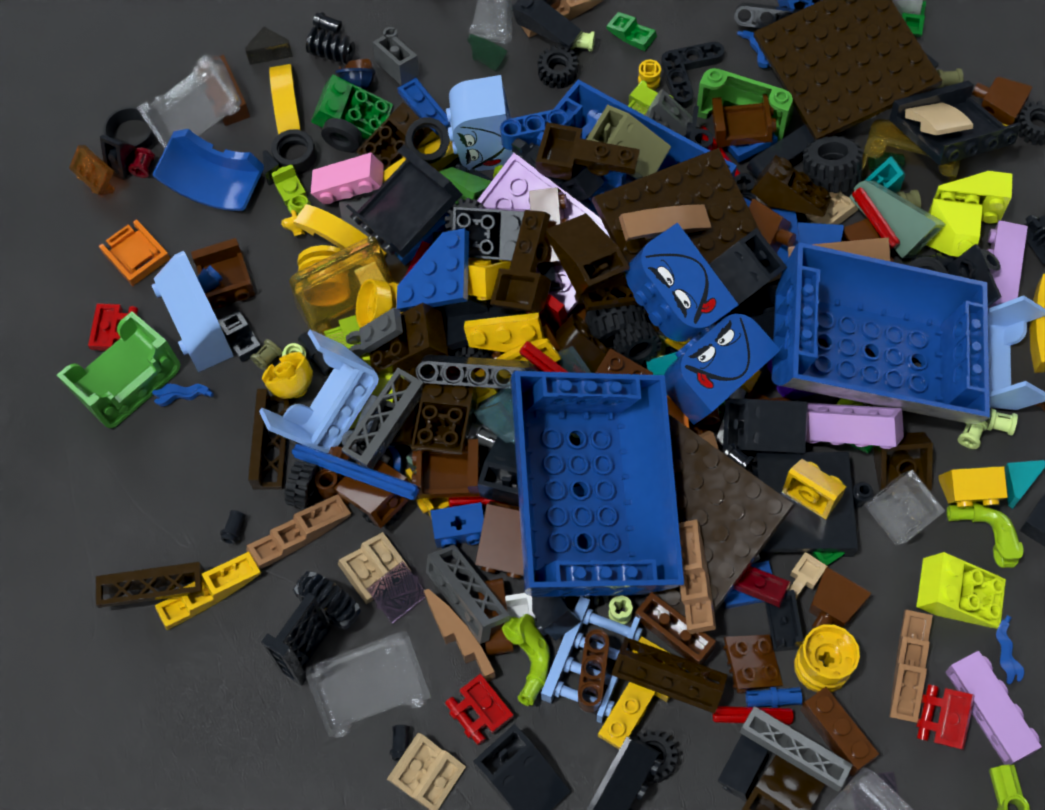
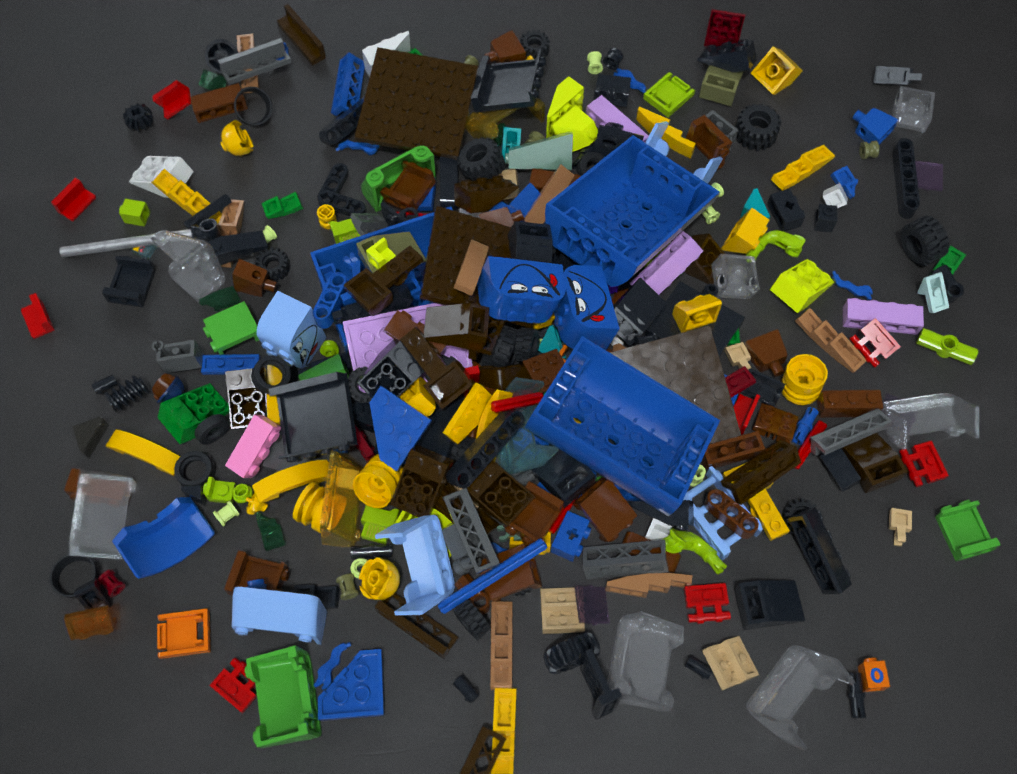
camera: 60 degrees left, 0 degrees up
(171, 428) = (355, 690): none -> blue plate
(269, 205) = (226, 513): none -> yellowish green bush
(278, 256) = (270, 532): none -> clear green slope
(376, 333) = (404, 495): dark grey hinge -> none
(452, 70) = (230, 327): none -> bright green panel
(523, 59) = (252, 279): none -> reddish brown torso
(608, 129) = (379, 254): none -> neon yellow panel
(696, 589) = (728, 422): medium nougat slope -> none
(738, 619) = (744, 409): none -> red panel
(875, 217) = (535, 163): red axle -> none
(939, 118) = (501, 84): tan slope -> none

